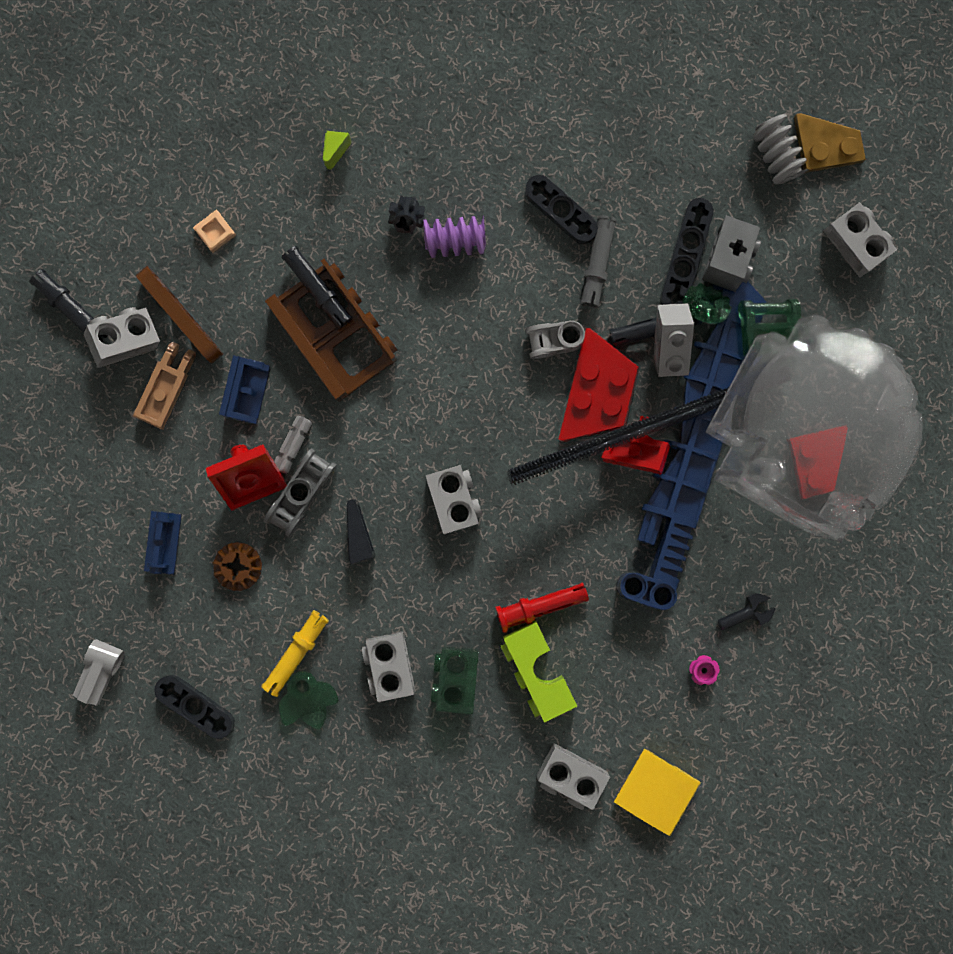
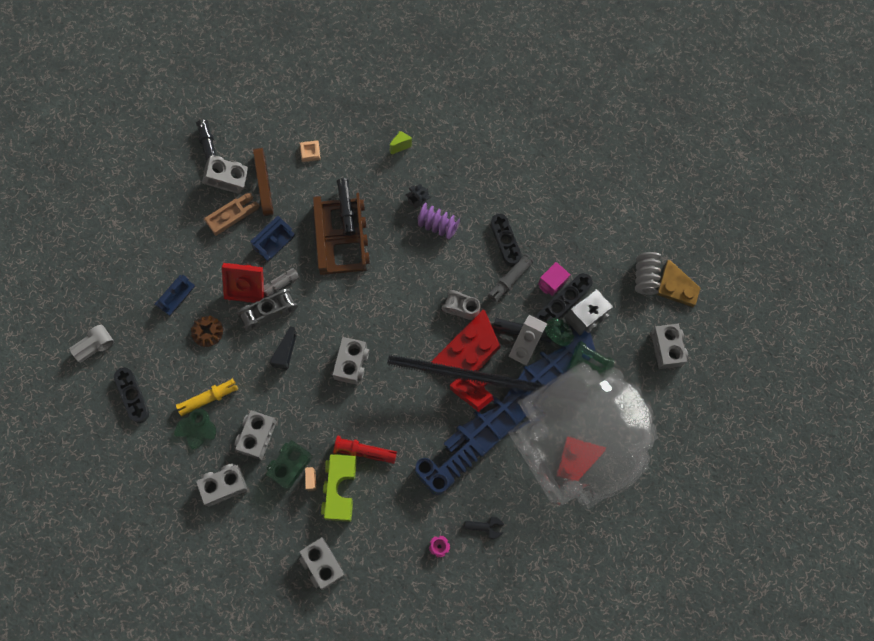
camera: 25 degrees right, 15 degrees down
(393, 757) = (223, 490): none -> light grey brick
(495, 682) = (310, 477): none -> light nougat tile
(657, 792) = (367, 605): yellow slope -> none
(658, 231) = (553, 279): none -> dark pink brick

